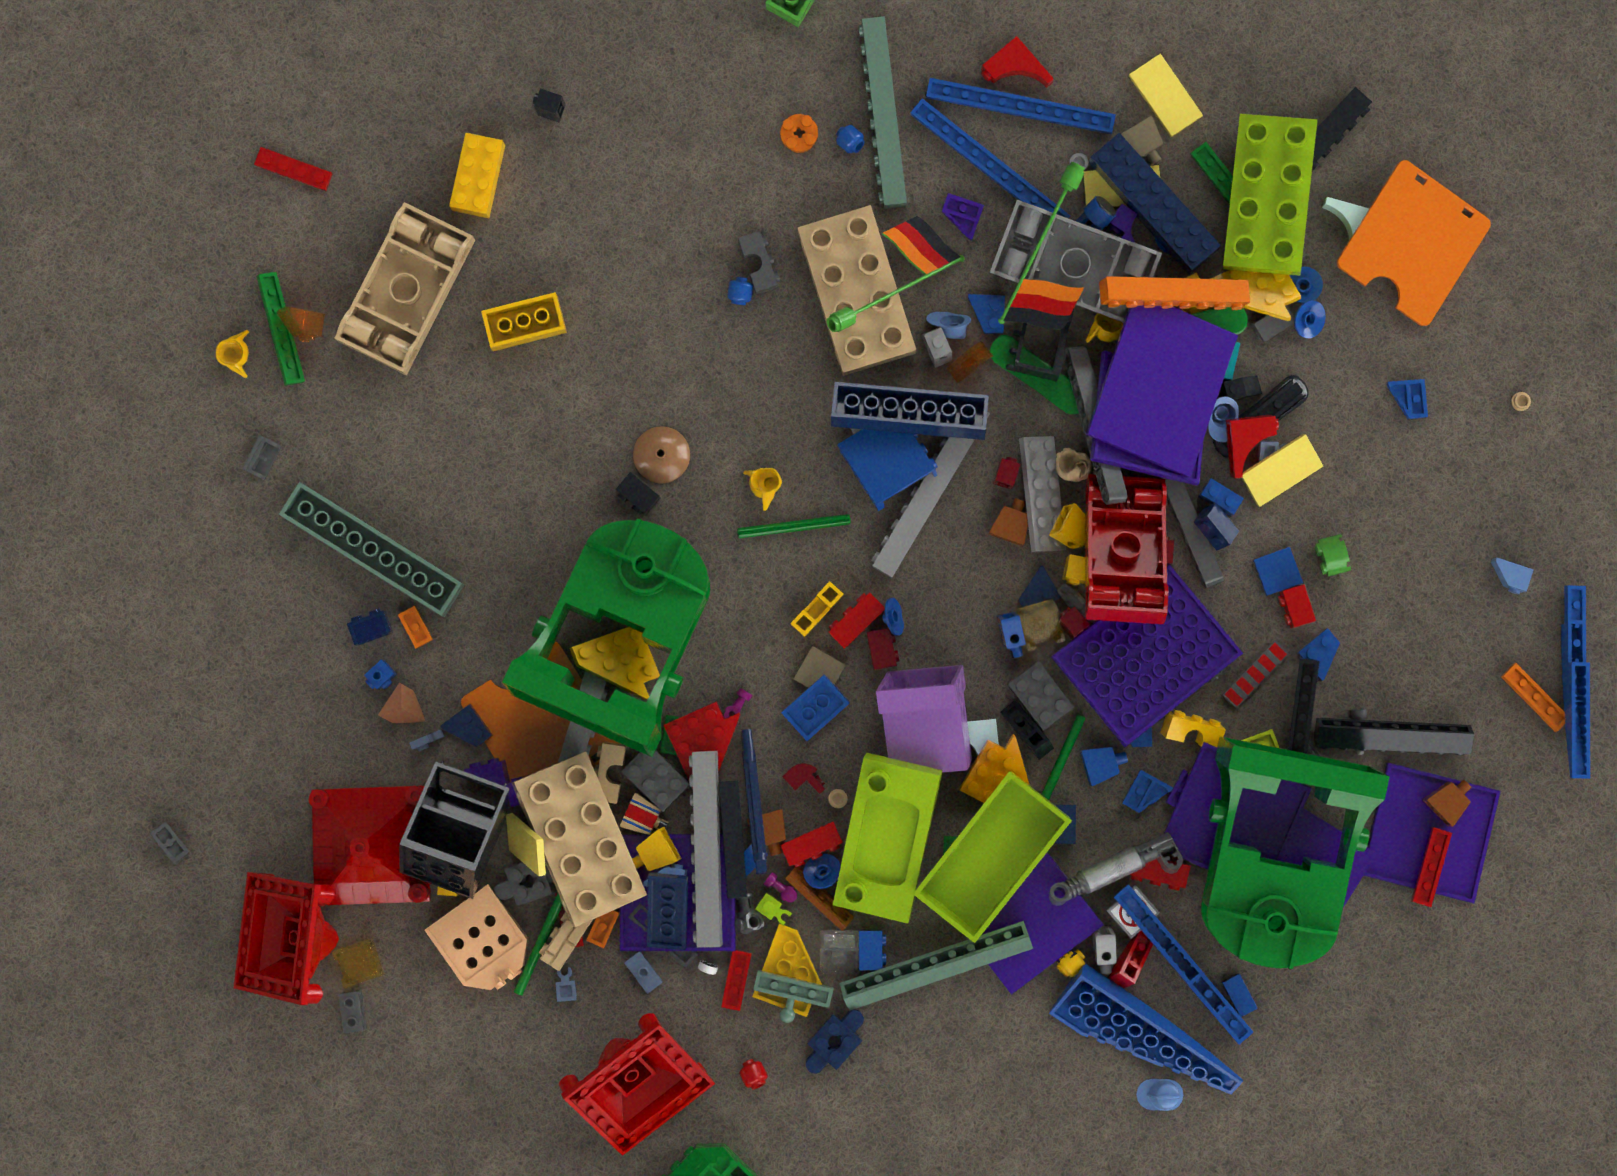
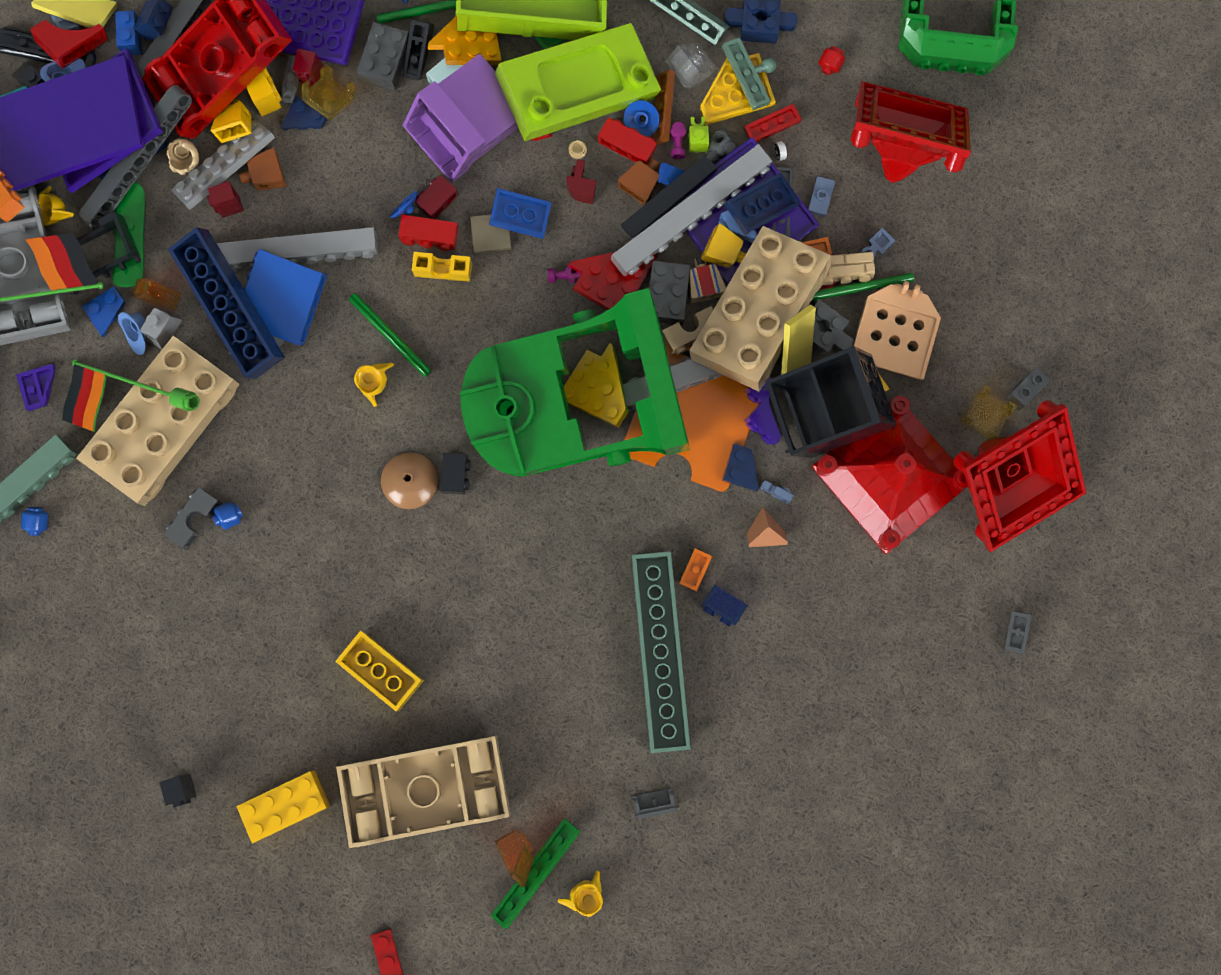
camera: 130 degrees left, 5 degrees down
(380, 675) = (755, 567): blue brick -> none
(754, 802) = (629, 202): dark blue piece -> none
(801, 122) = (70, 566): orange plate -> none
(871, 949) = (665, 44): blue brick -> none
(1010, 625) = (349, 110): blue torso -> none

